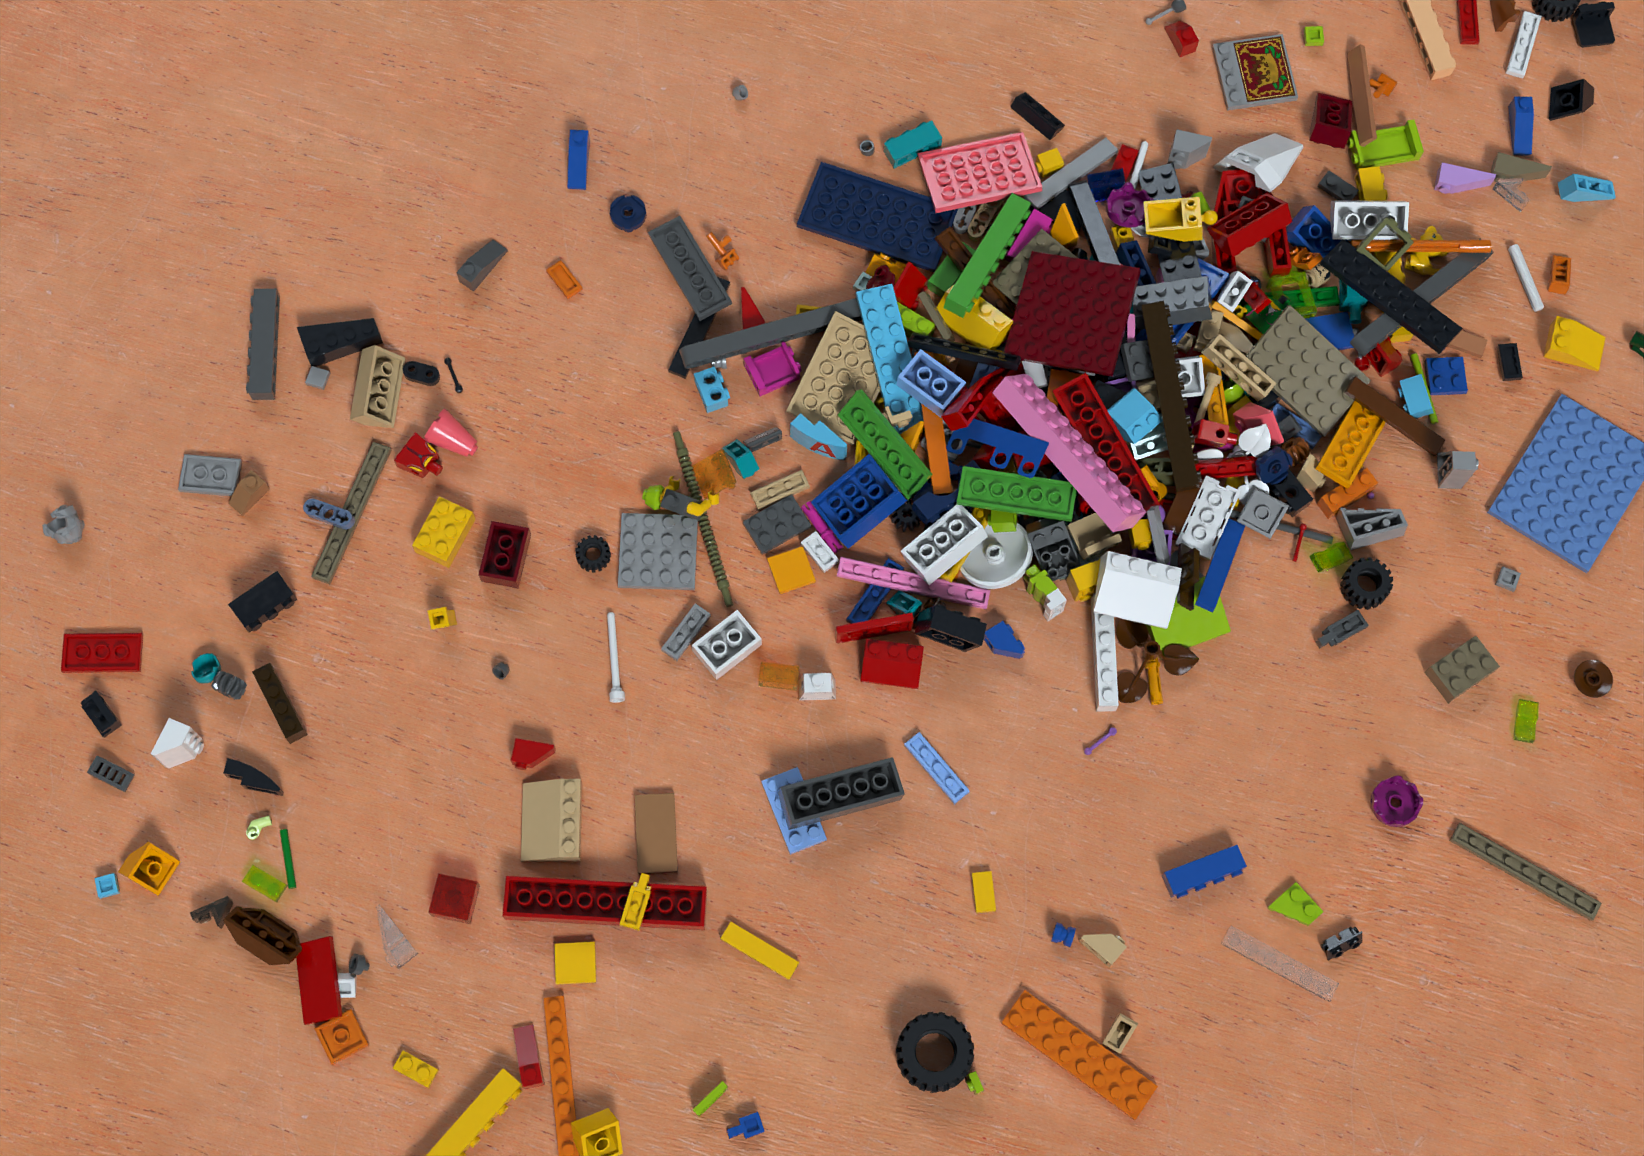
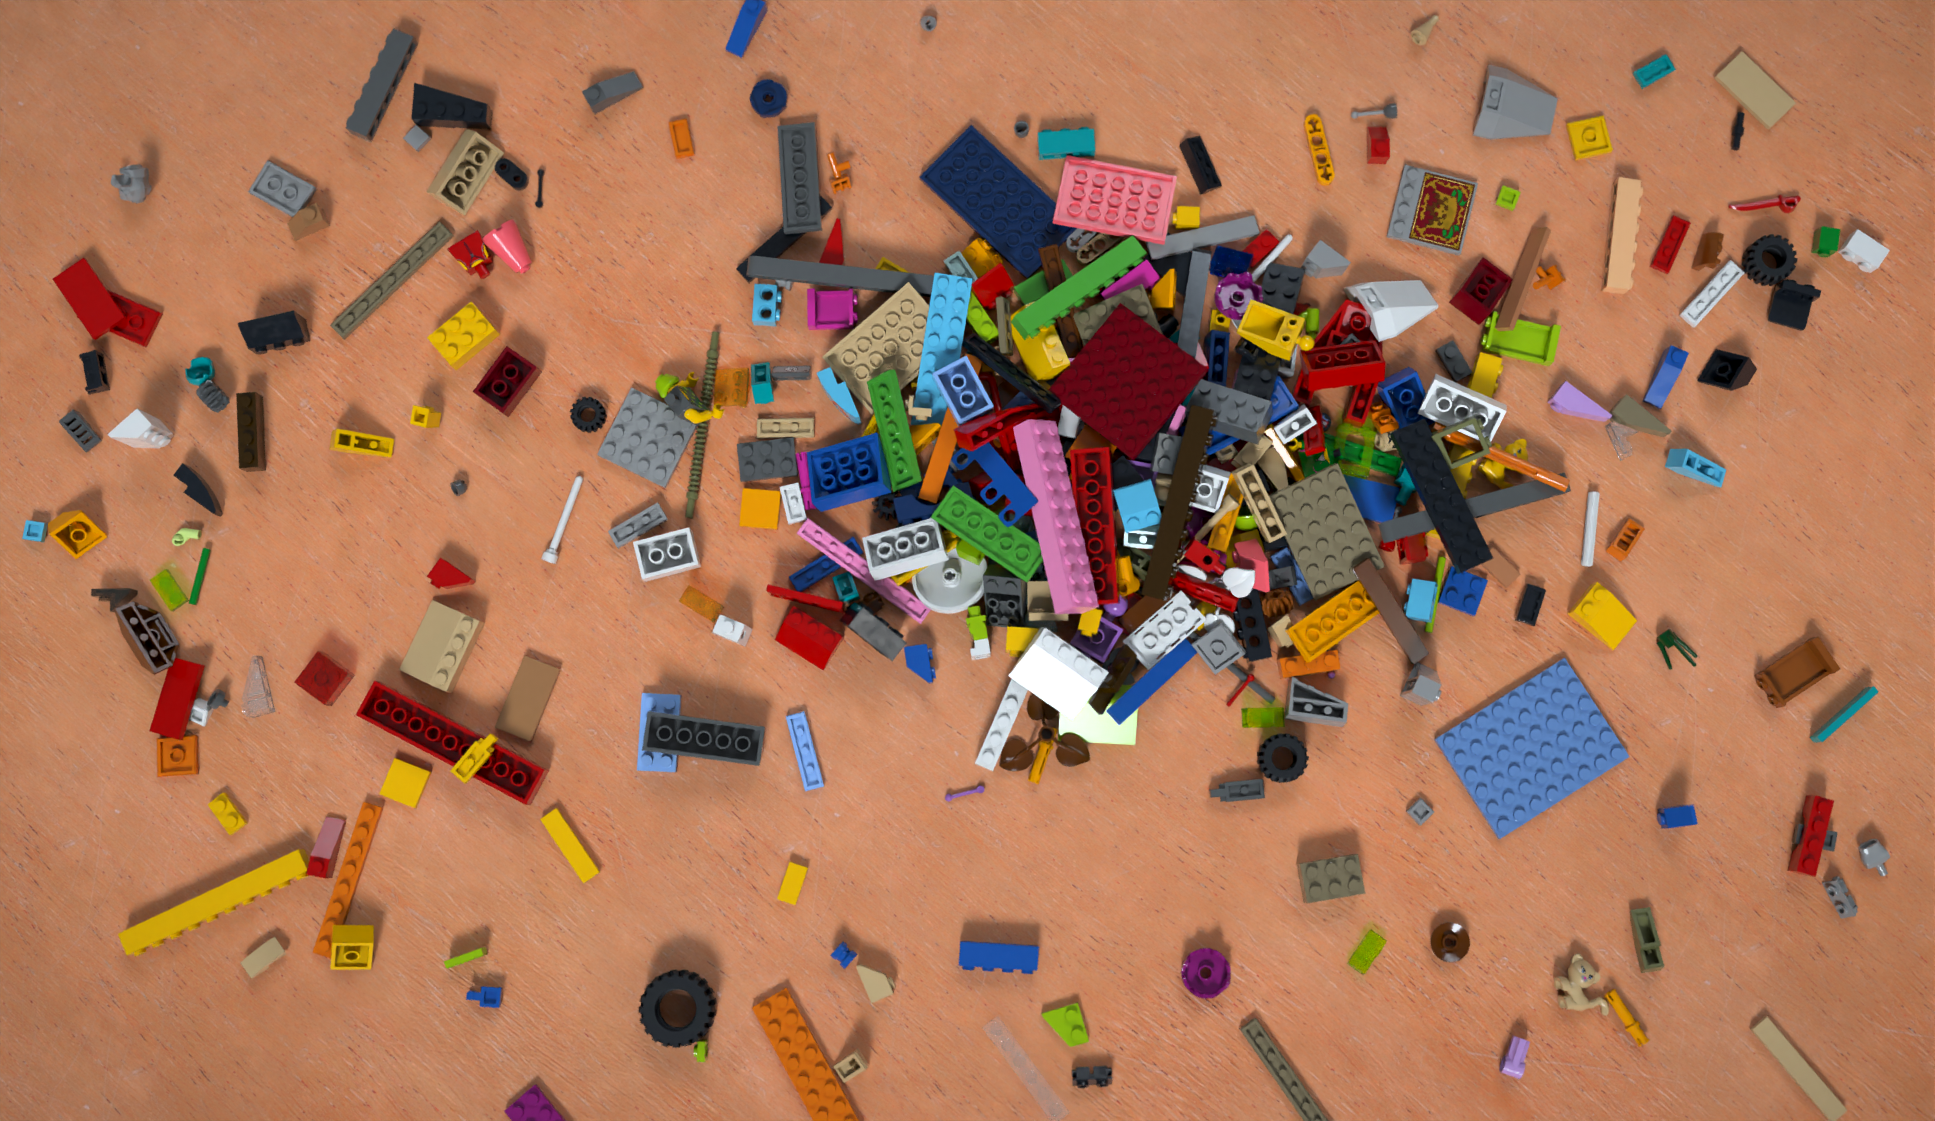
camera: 30 degrees right, 10 degrees up
(67, 647) = (89, 298): none -> red tile
(333, 520) = (363, 270): sand blue beam -> none
(389, 669) = (361, 443): none -> yellow slope
(881, 277) = (970, 267): dark red plate -> none
(1132, 62) = (1321, 149): none -> light orange beam
(1158, 535) = (1102, 631): light grey tile -> none
(1276, 457) = (1239, 606): dark blue plate -> none

